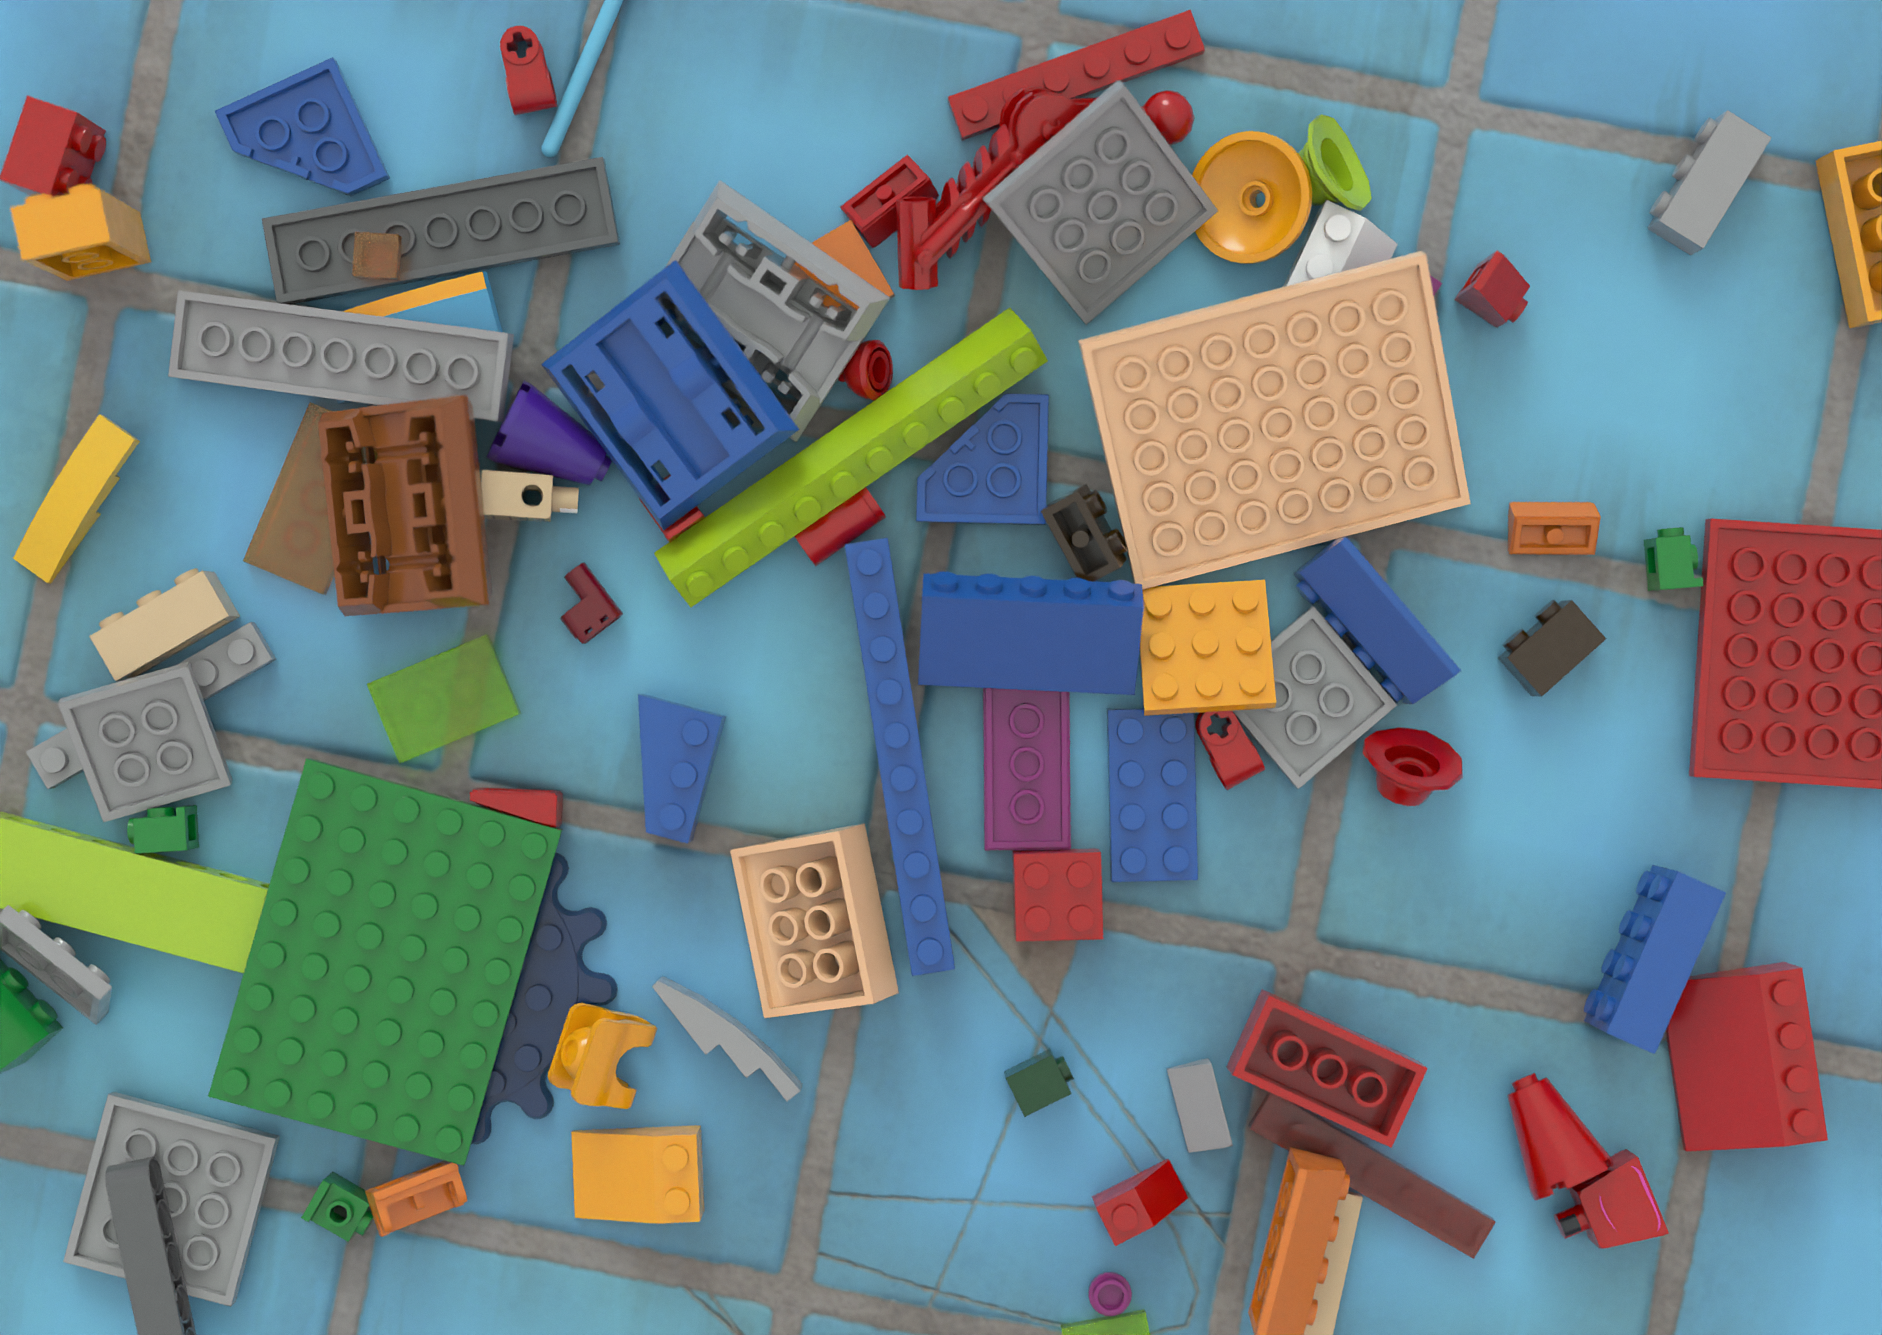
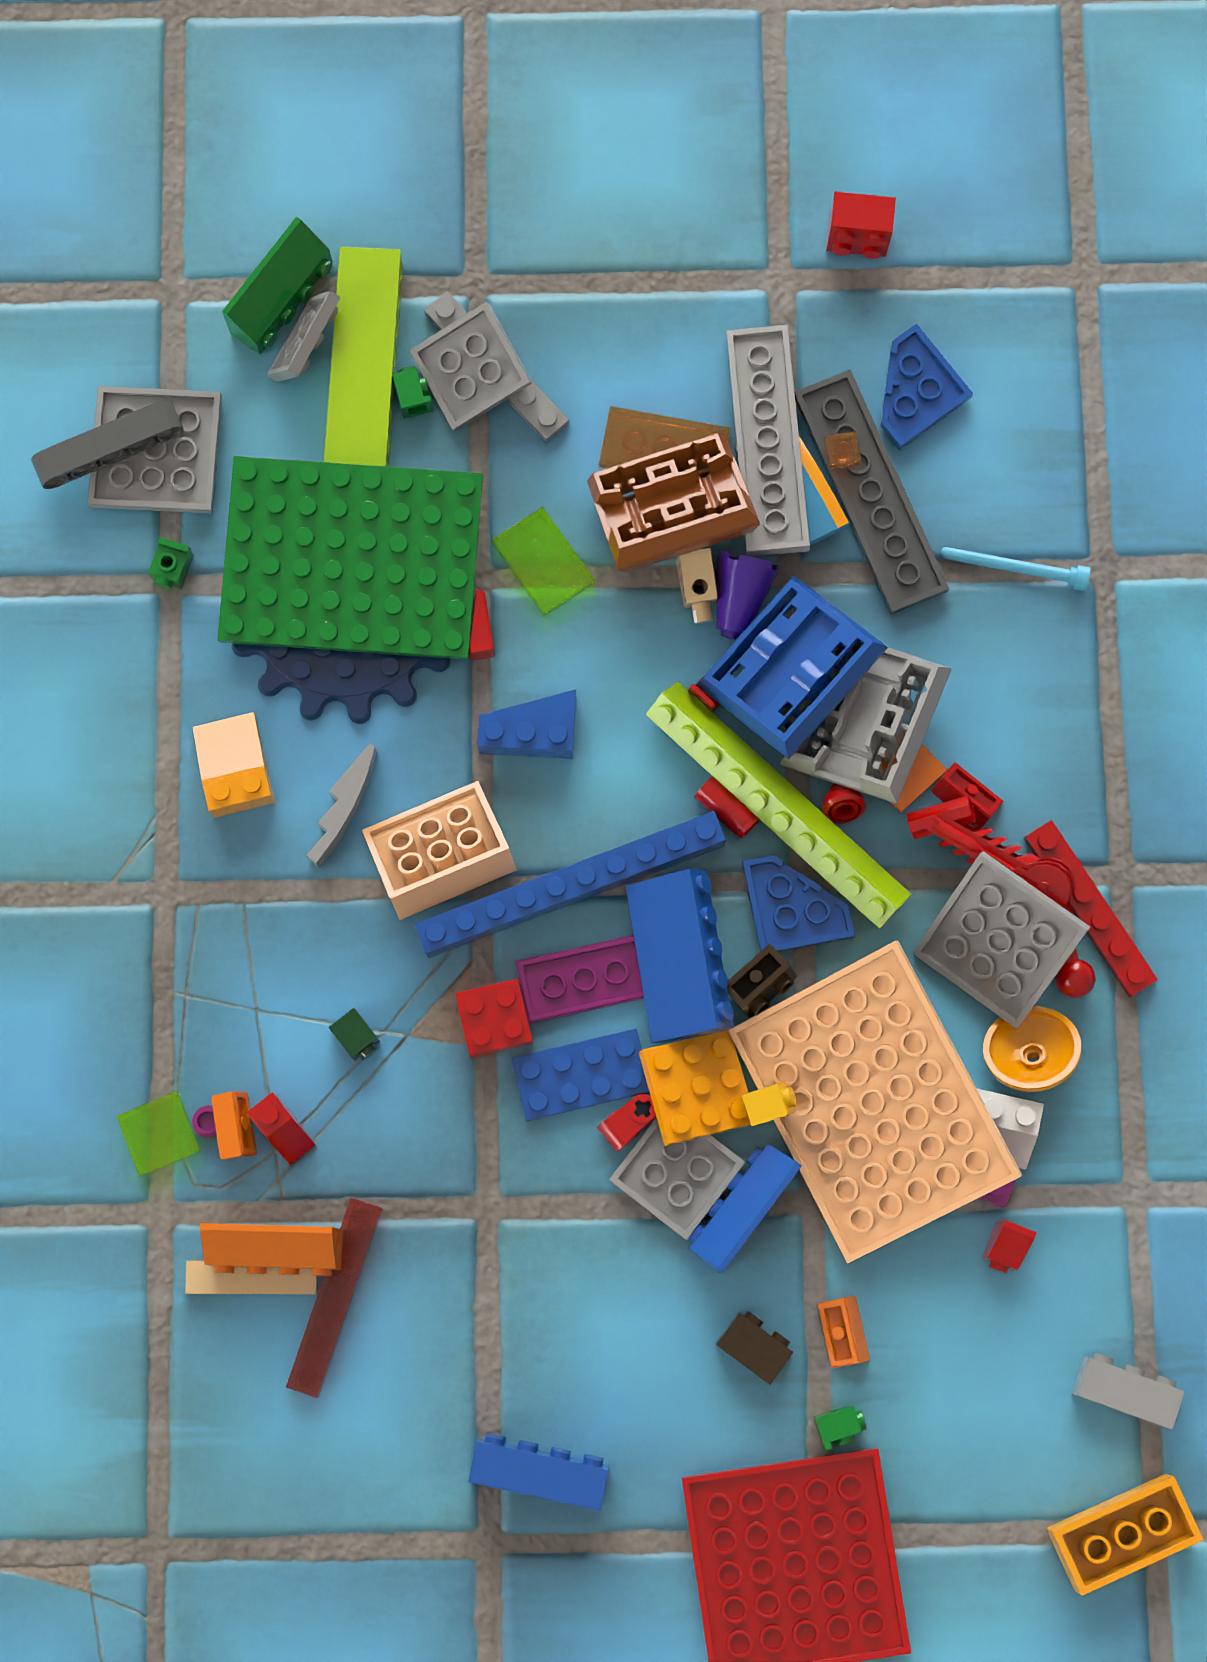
camera: 80 degrees right, 10 degrees down
(75, 498) = (628, 286): yellow slope -> none
(80, 233) = (810, 251): light orange brick -> none
(163, 624) = (554, 363): tan brick -> none
(416, 1196) = (187, 613): orange hinge -> none
(528, 77) = (991, 527): red piece -> none
(590, 1052) = (315, 710): light orange piece -> none
(592, 608) = (628, 650): dark red piece -> none
(1130, 1265) = (233, 1125): none -> orange slope
(1199, 1106) = (359, 1158): light grey slope -> none
(1248, 558) = (769, 1103): none -> yellow brick
(1326, 1068) = (407, 1243): red brick -> none
(1334, 166) = (1070, 1105): lime hat -> none
(1411, 764) = (644, 1258): red hat -> none
(1552, 1138) = (387, 1427): red cone -> none
(1614, 1206) = (345, 1486): red torso -> none
(1745, 1060) = (475, 1563): red slope -> none

